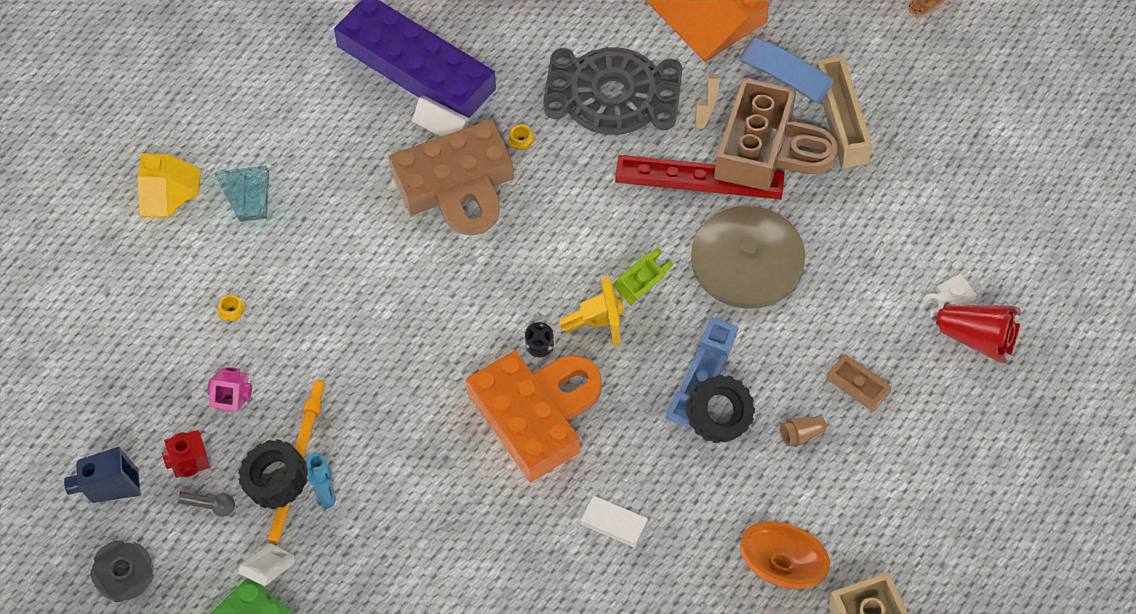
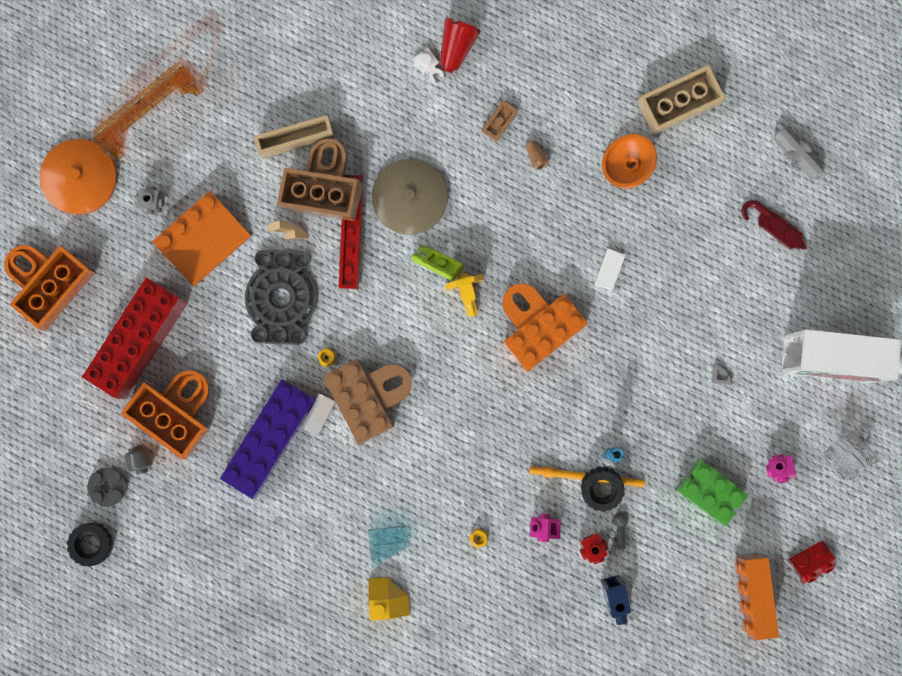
camera: 100 degrees left, 25 degrees up
(127, 586) = (685, 576): dark grey plate -> none
(267, 564) = (666, 482): white tile -> none
(539, 333) = (486, 328): black wheel -> none
(708, 363) = (504, 221): medium blue slope -> none
(742, 409) = (535, 194): black tyre -> none
(787, 69) = (264, 177): medium blue slope -> none

